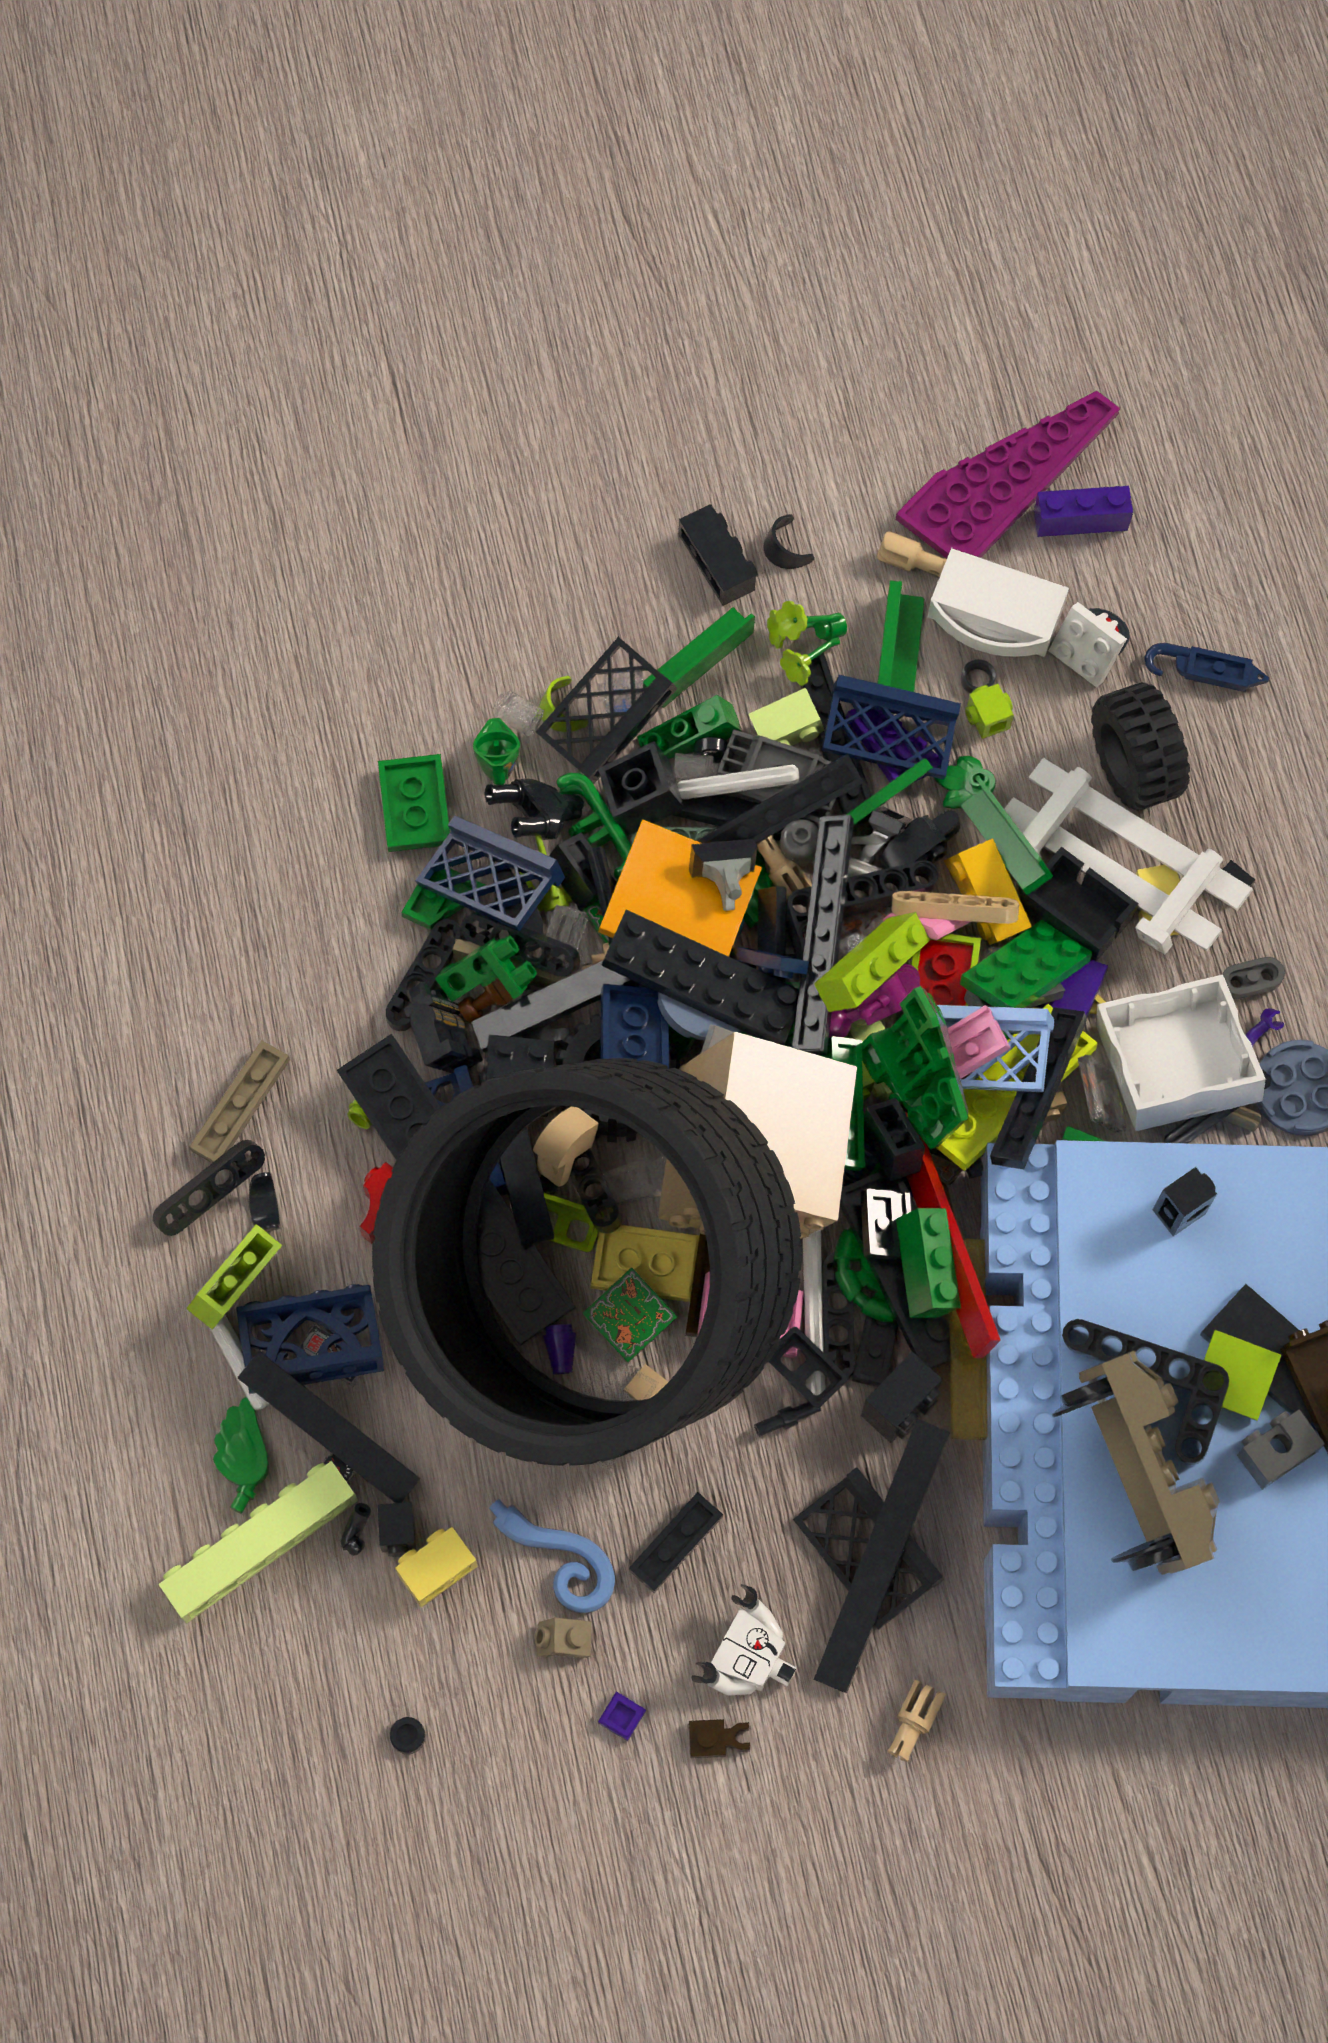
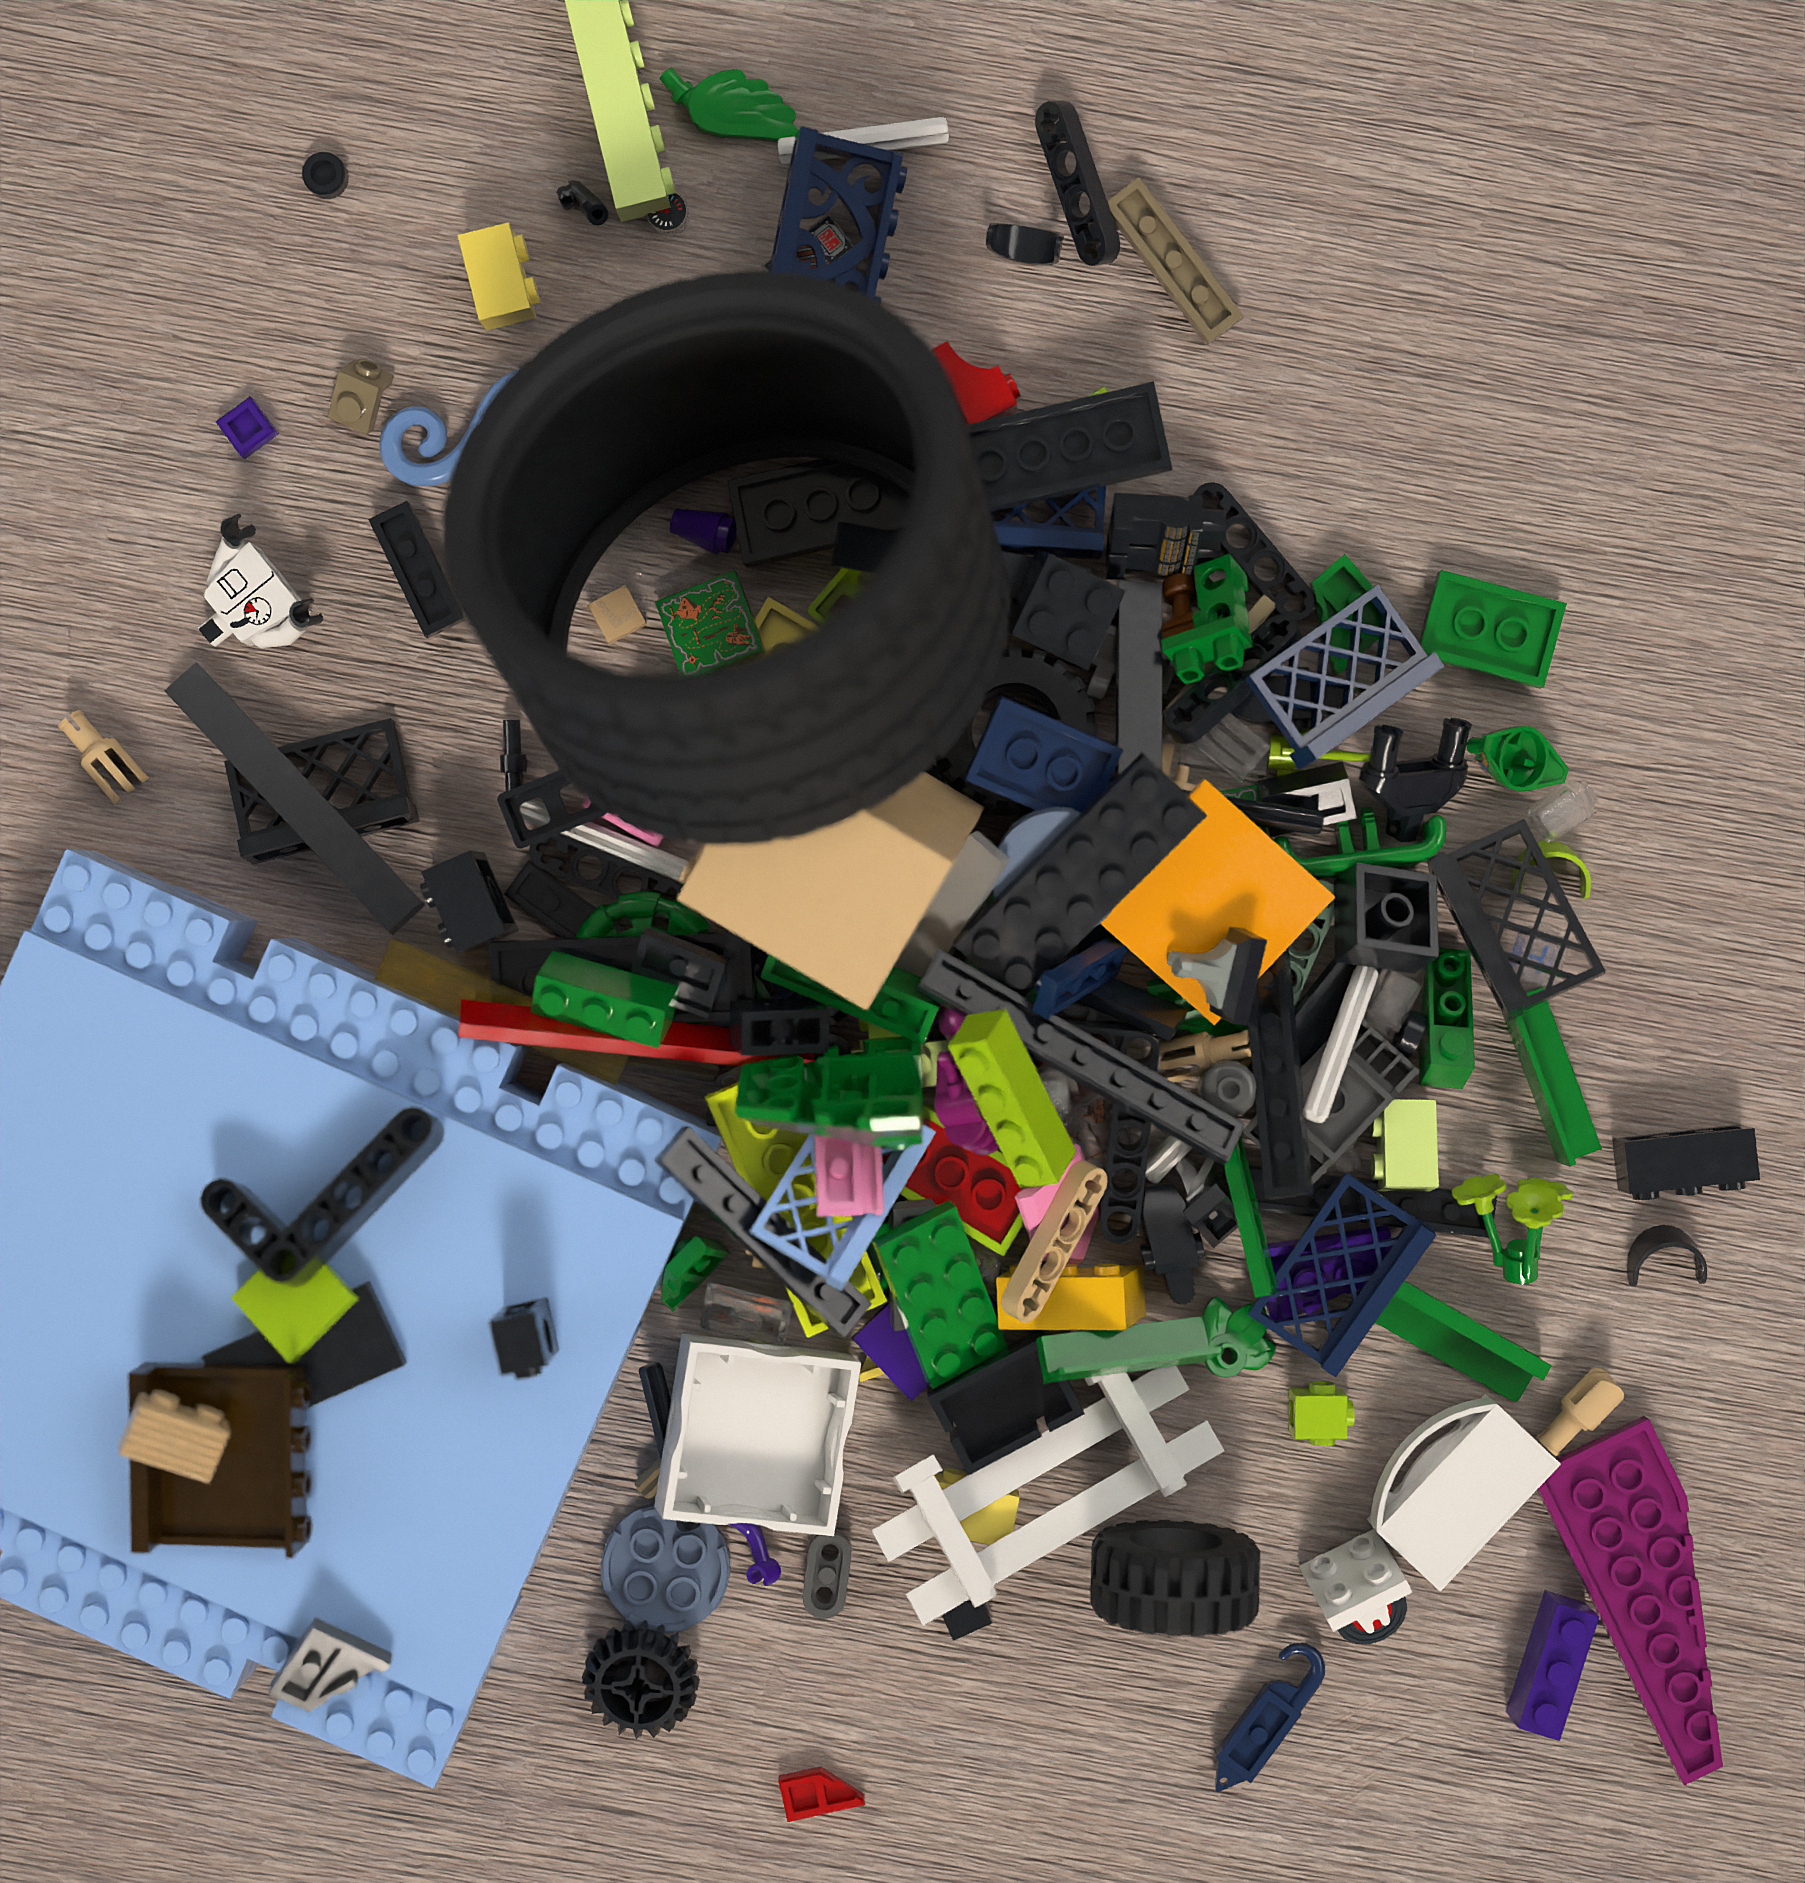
camera: 115 degrees right, 20 degrees up
(234, 1277) = (942, 164): lime brick -> none
(328, 1427) = (710, 207): black tile -> none
(396, 1528) = (564, 250): black brick -> none
(710, 1738) = (180, 518): dark brown plate -> none
(981, 665) = (1389, 1433): black piece -> none
(1173, 1519) = (145, 1138): dark tan piece -> none
(1269, 1465) = (175, 1331): dark grey brick -> none

